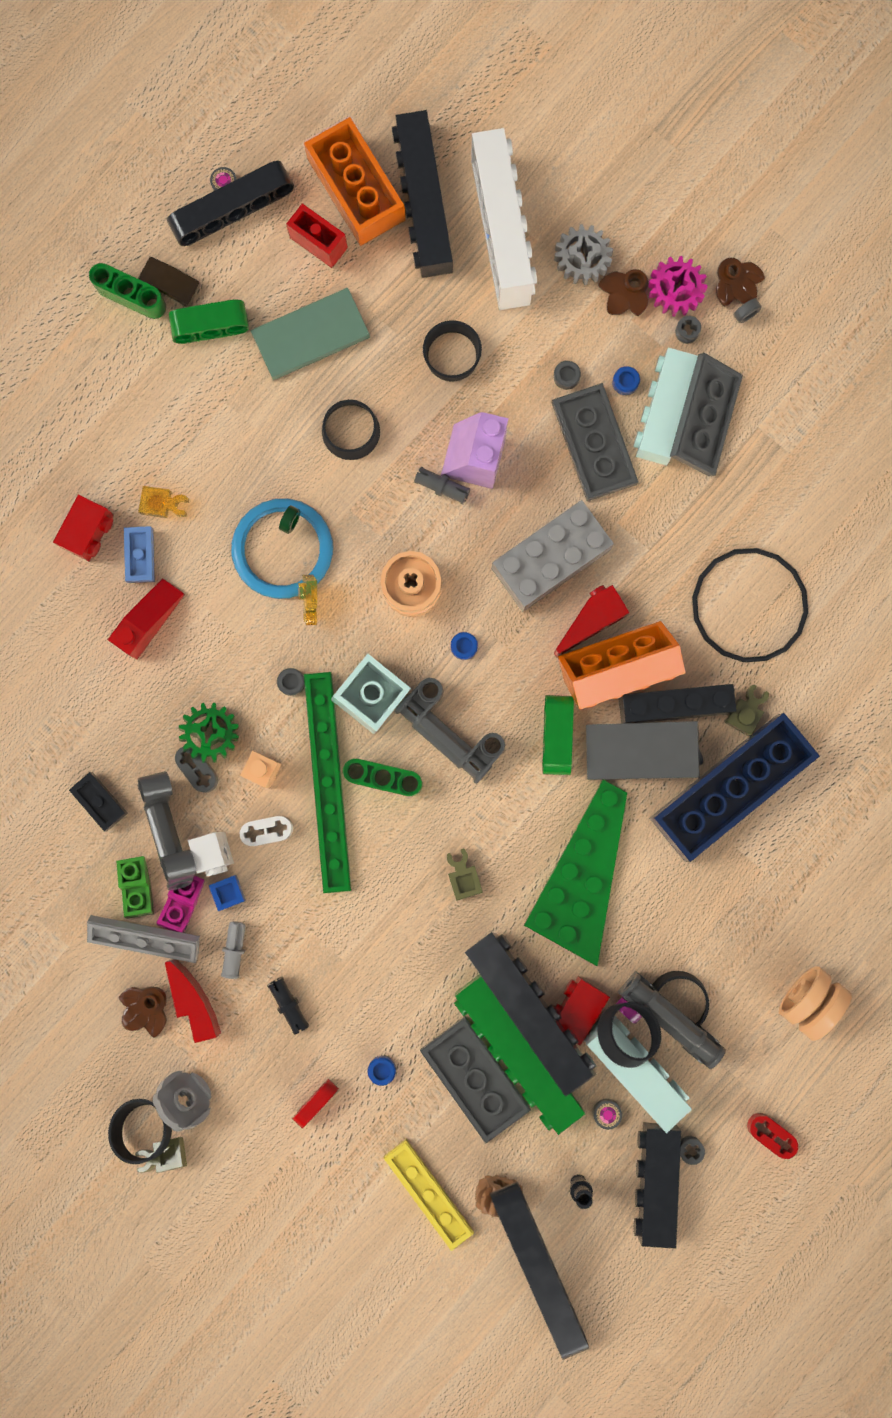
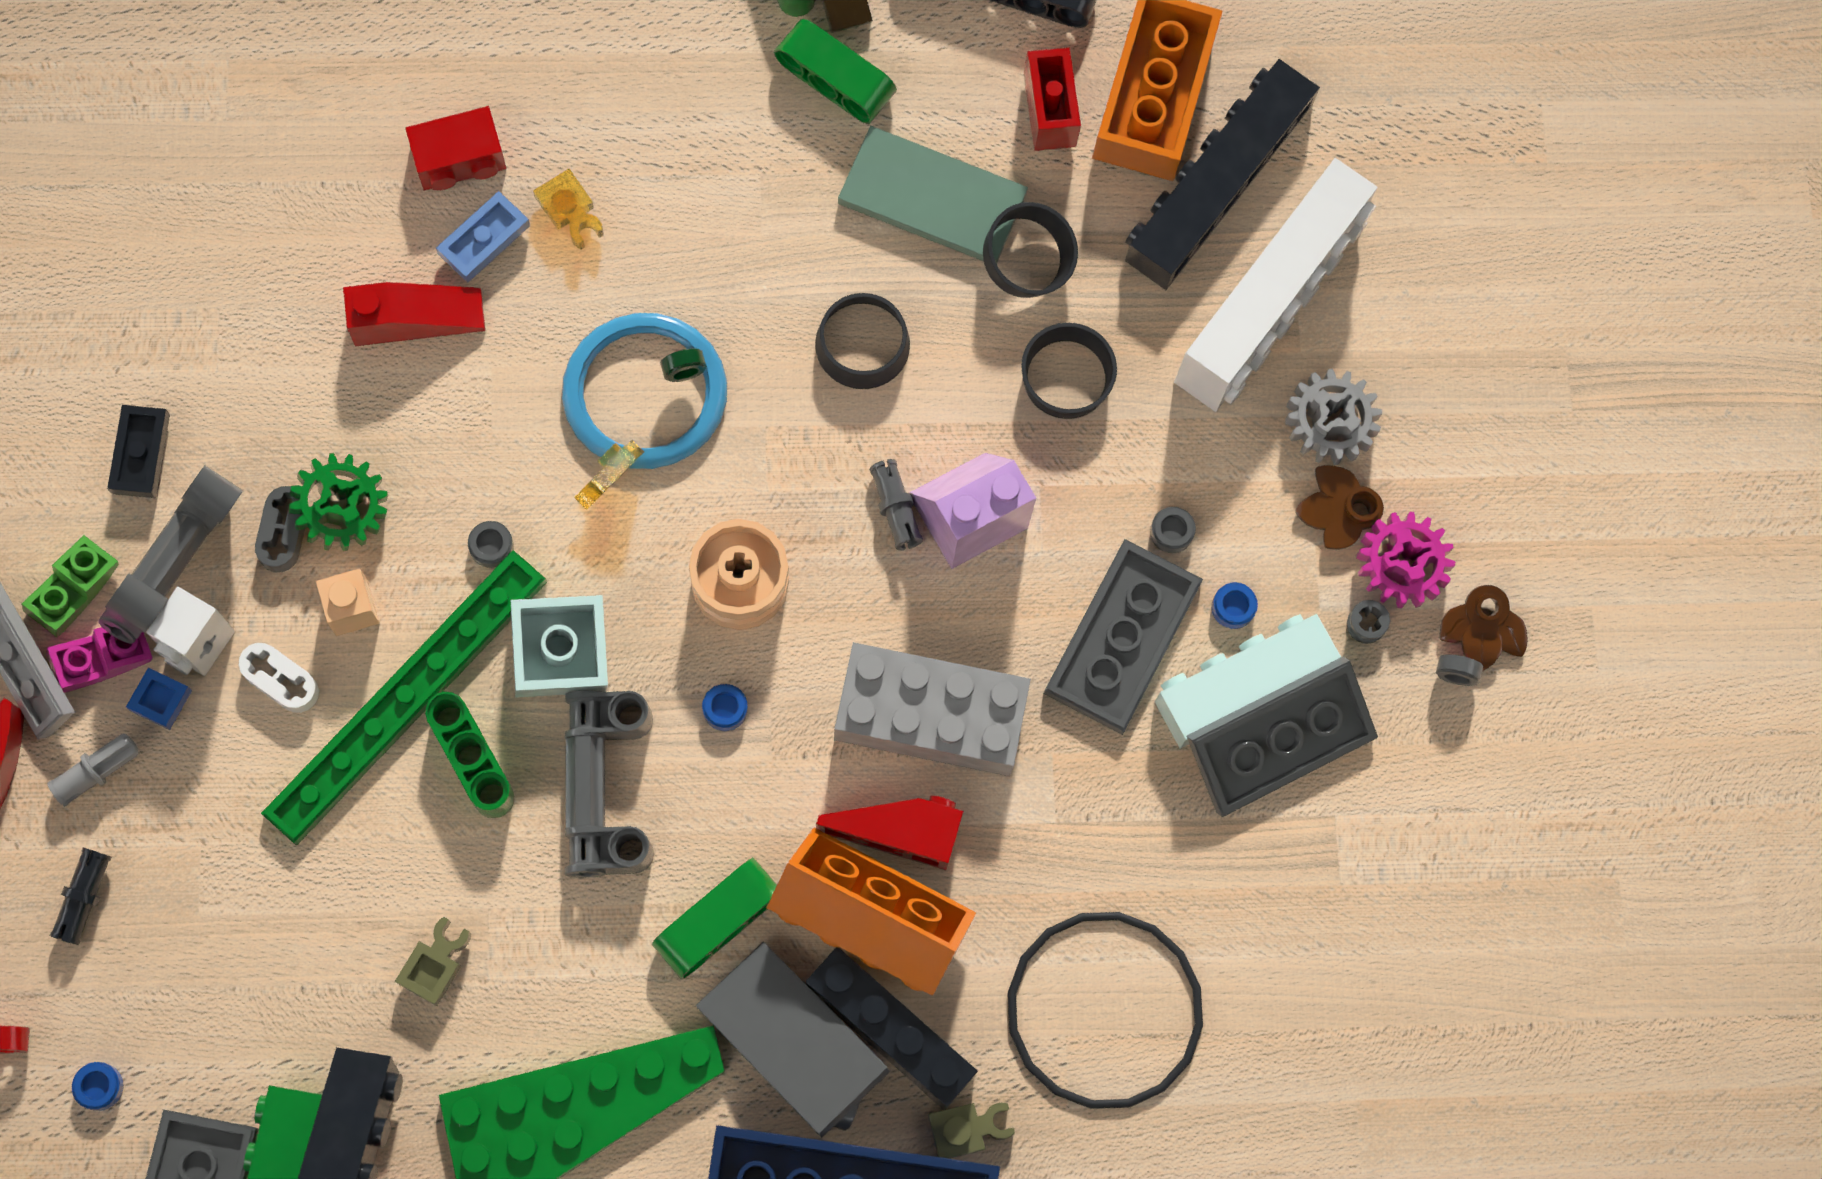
camera: 35 degrees right, 10 degrees down
(392, 296) = (1055, 225): none -> black tyre

